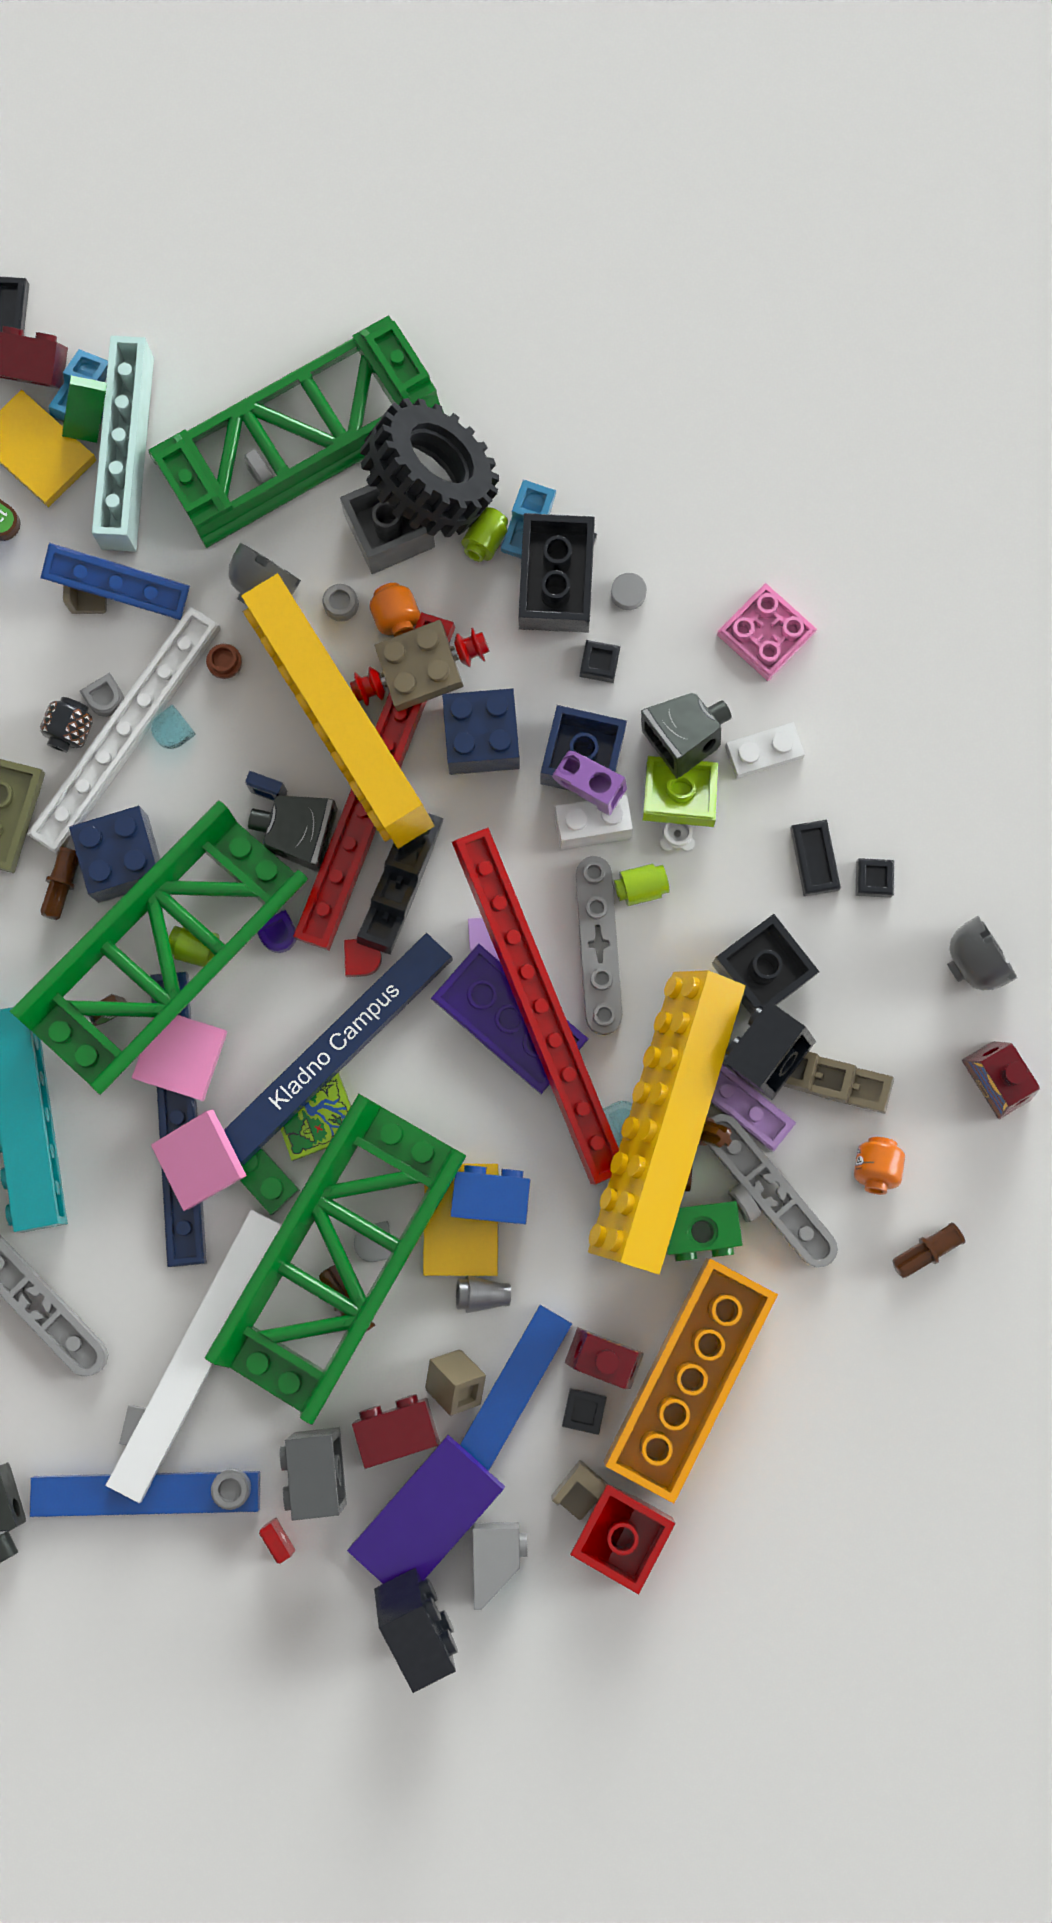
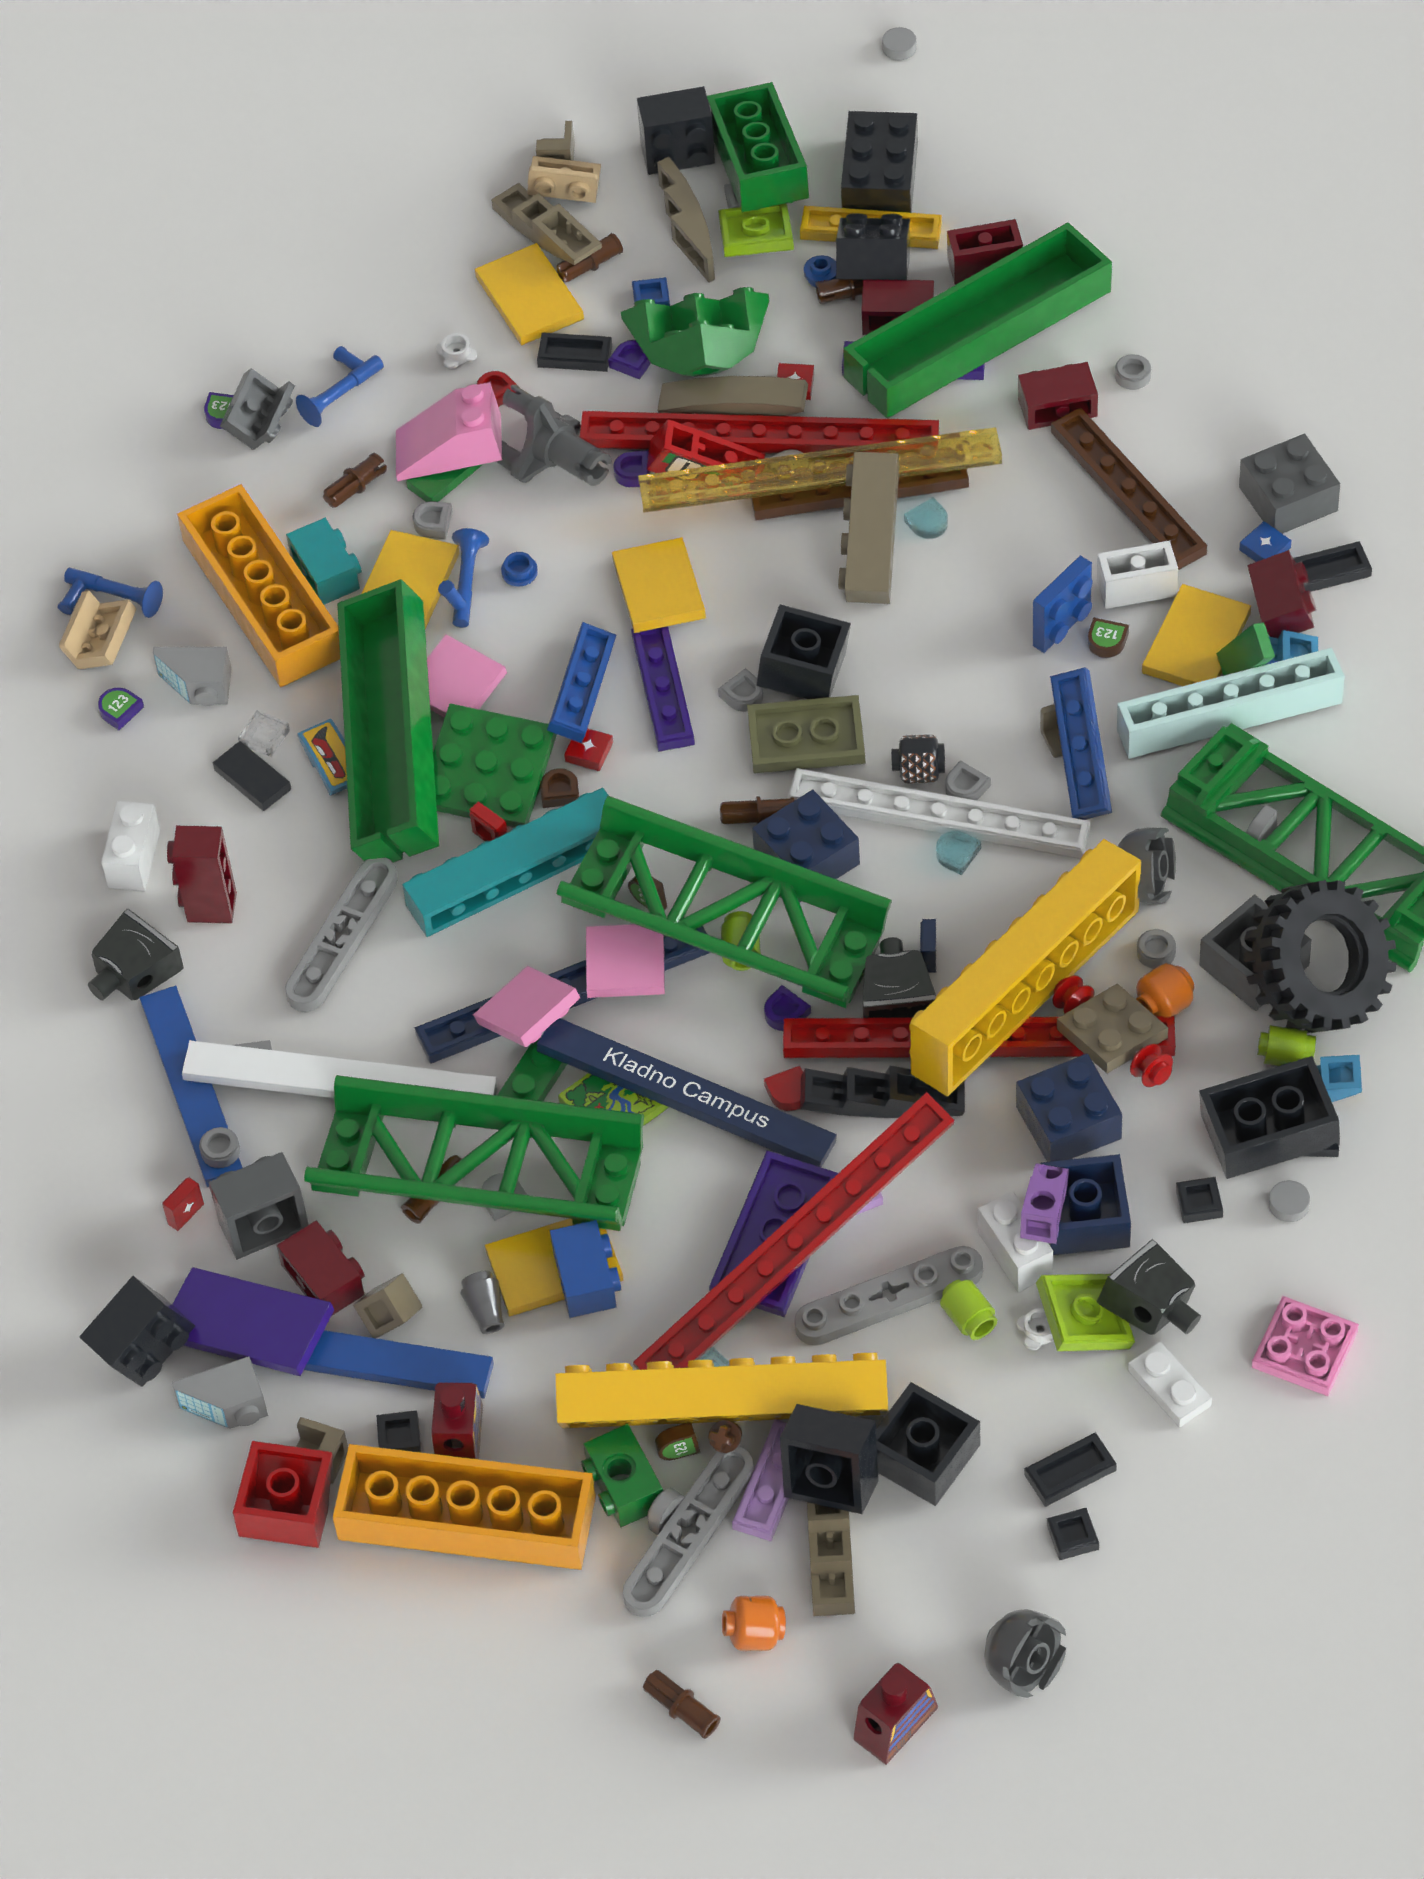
camera: 75 degrees right, 25 degrees down
(224, 661) = (1046, 868): copper plate -> none

